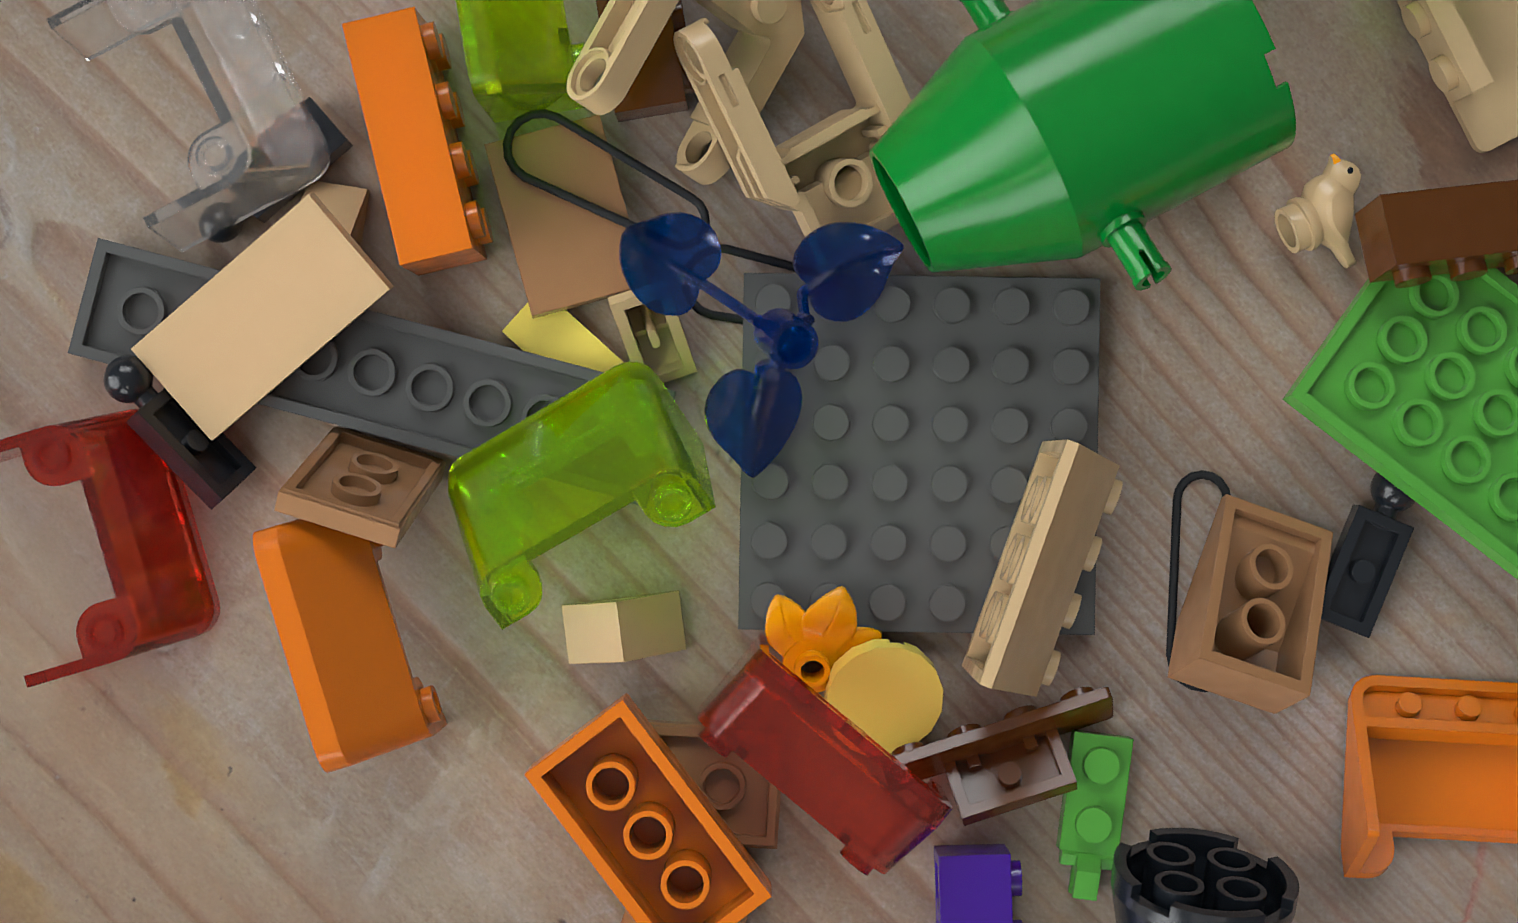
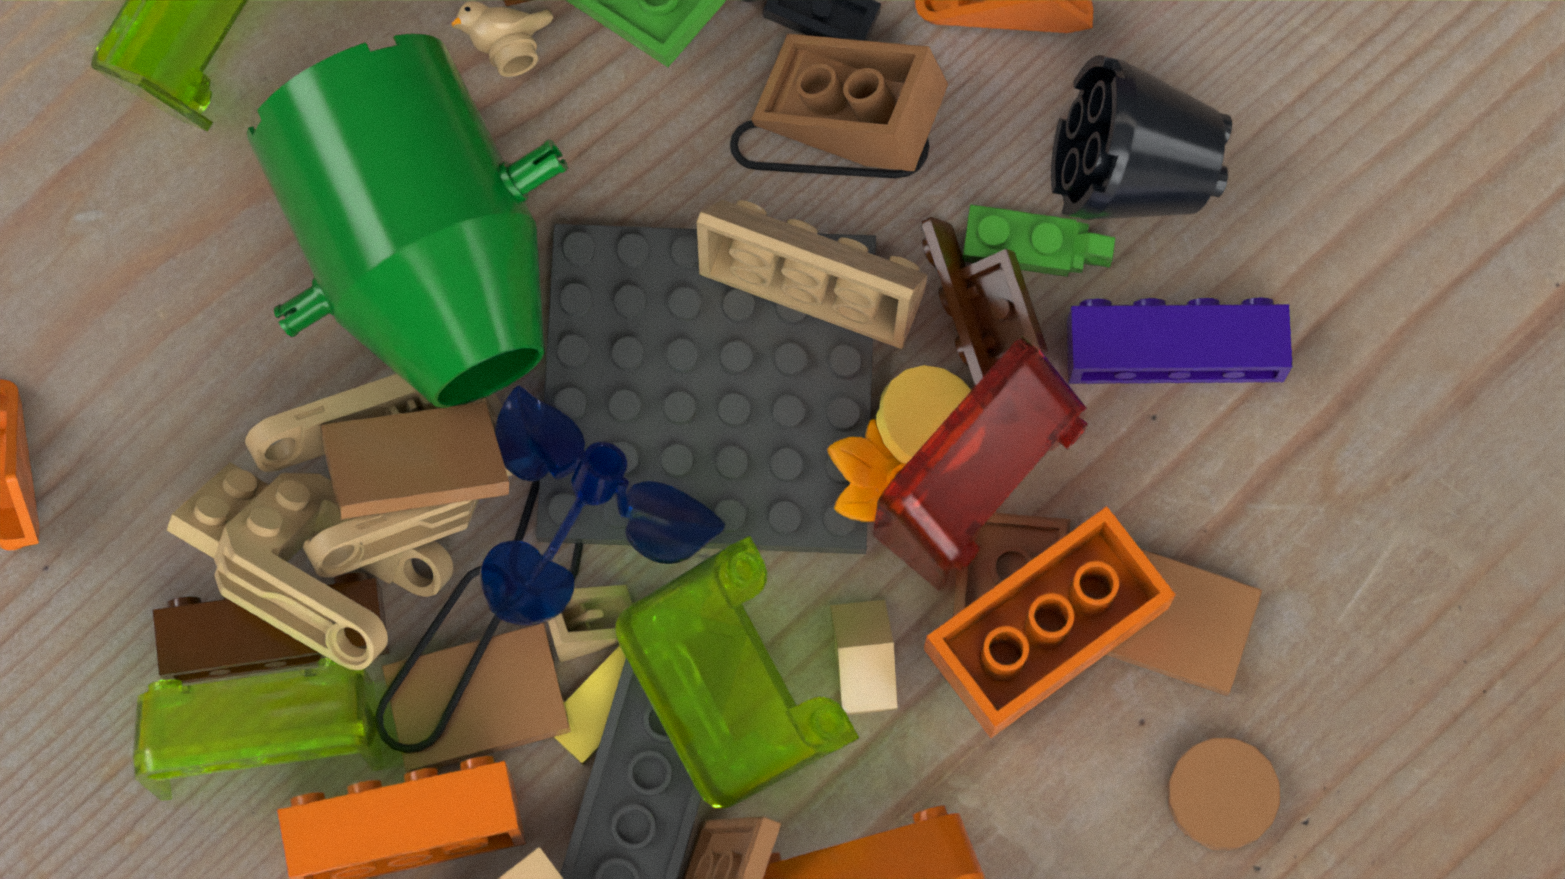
camera: 90 degrees left, 15 degrees down
(806, 134) = (414, 460): none -> medium nougat tile

